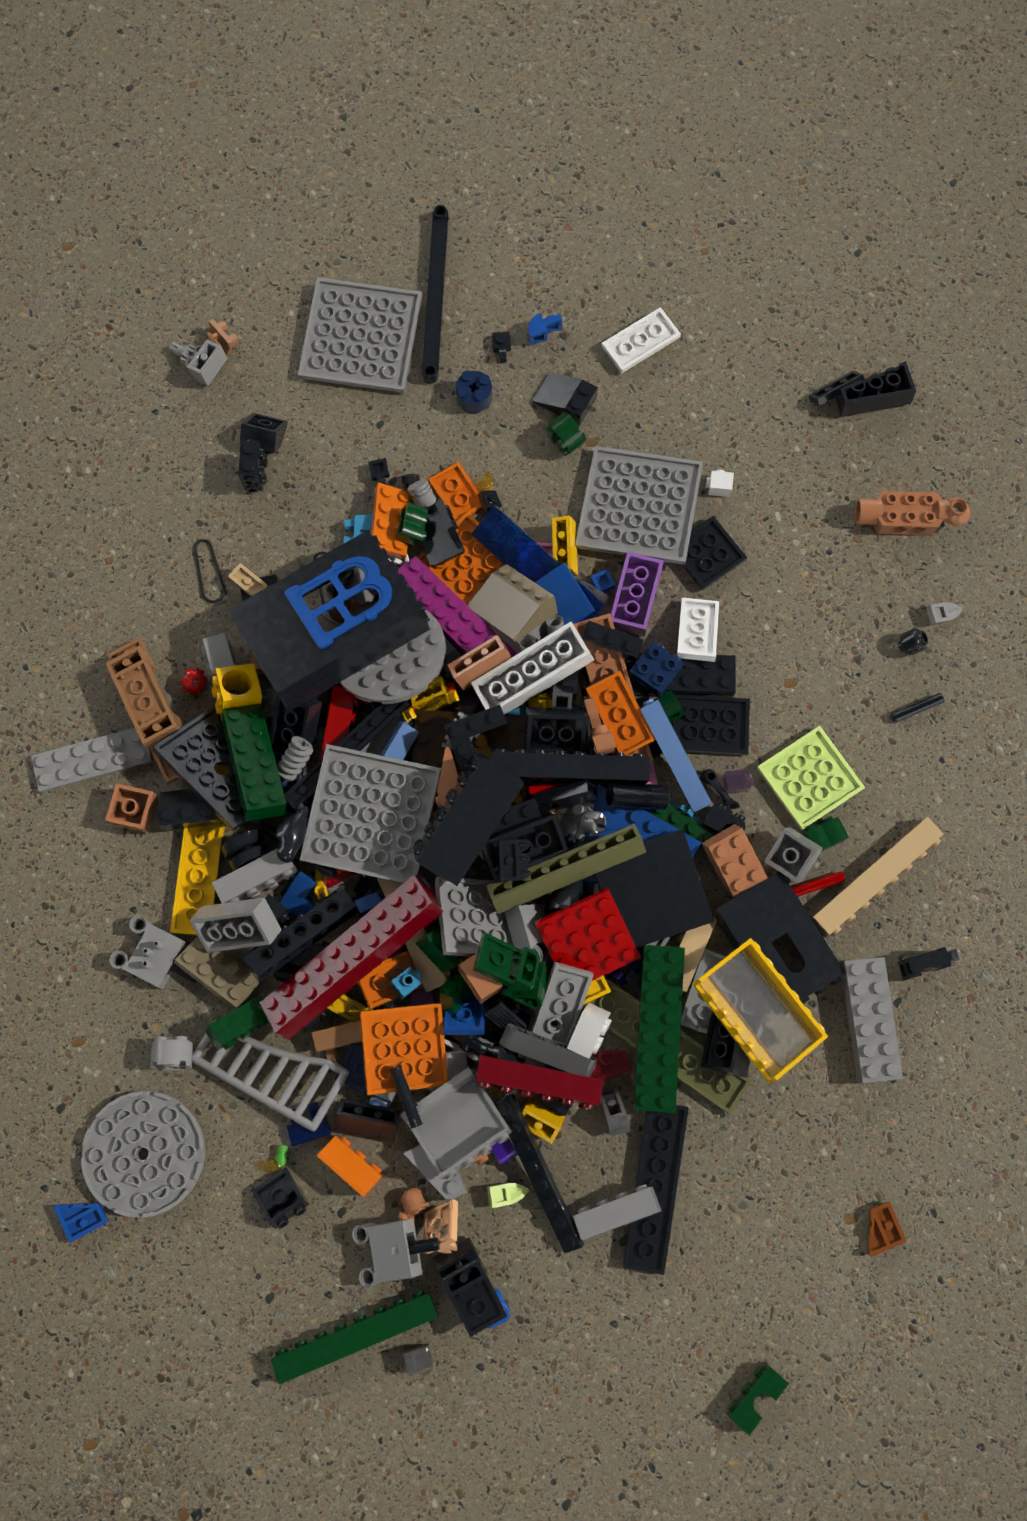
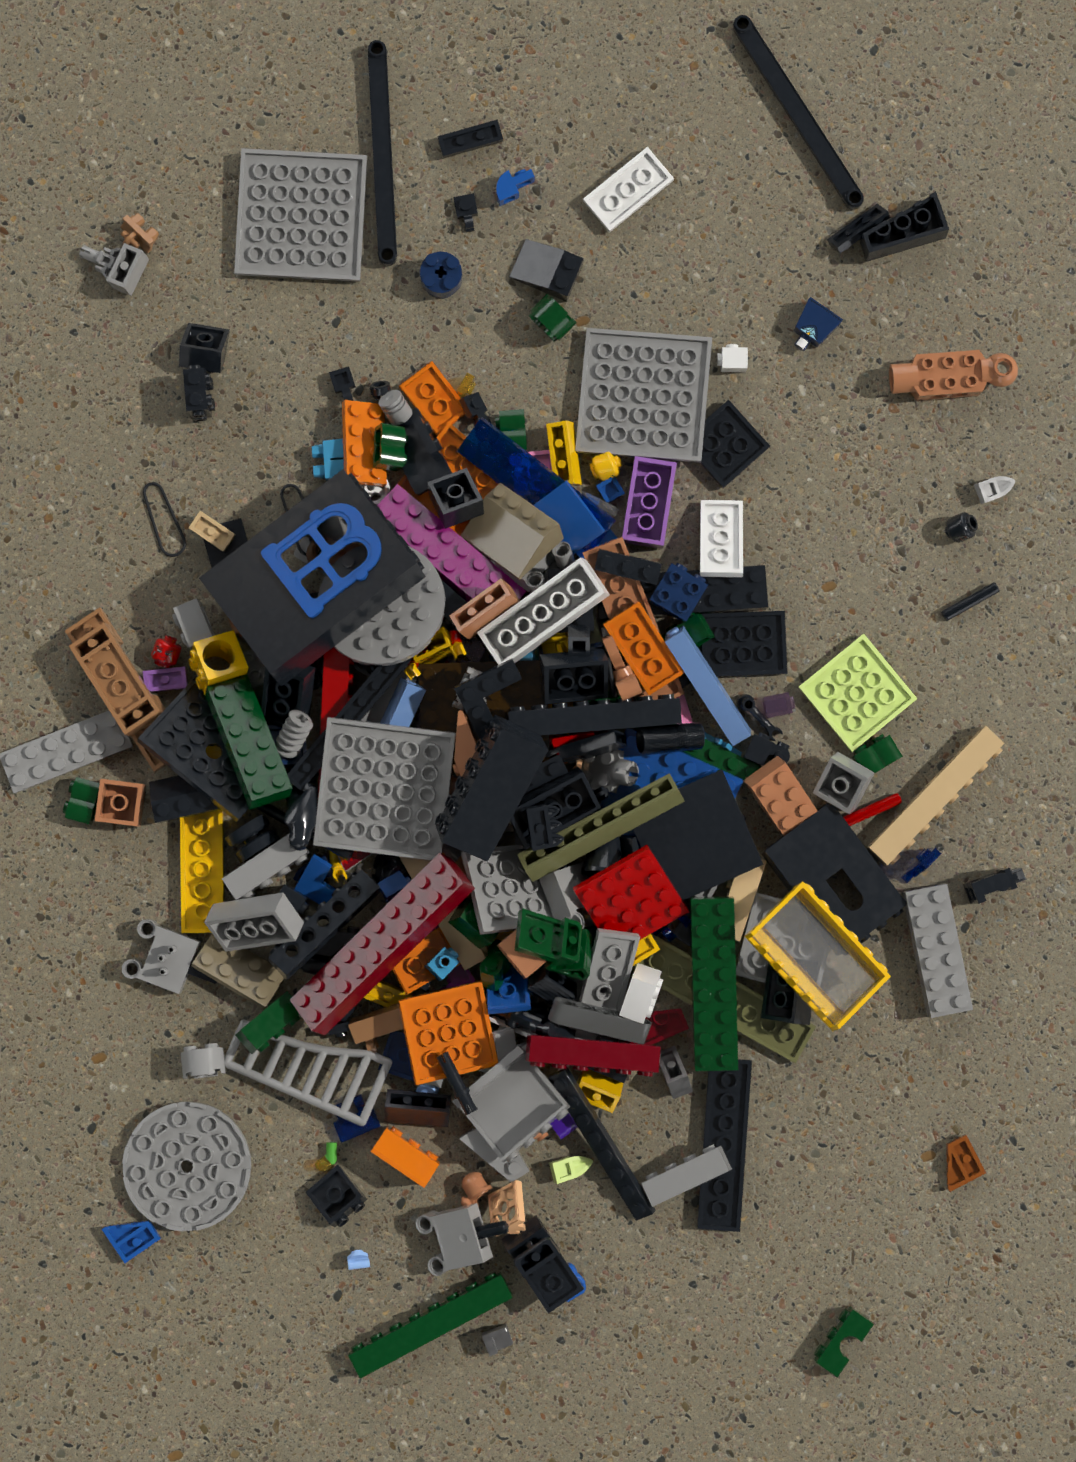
camera: 15 degrees left, 10 degrees up
(97, 804) = (82, 802): none -> dark green brick
(189, 704) = (165, 679): none -> medium lavender plate
(293, 1263) = (358, 1260): none -> light blue plate
(303, 1037) = (340, 1029): none -> black plate
(465, 570) = (455, 498): none -> black brick
(511, 288) = (470, 138): none -> black plate
(523, 517) = (513, 425): none -> dark green brick
(600, 560) = (605, 466): none -> yellow head
(791, 293) = (798, 112): none -> black piece
(794, 461) = (815, 325): none -> dark blue torso
(863, 933) = (925, 859): none -> clear blue wing

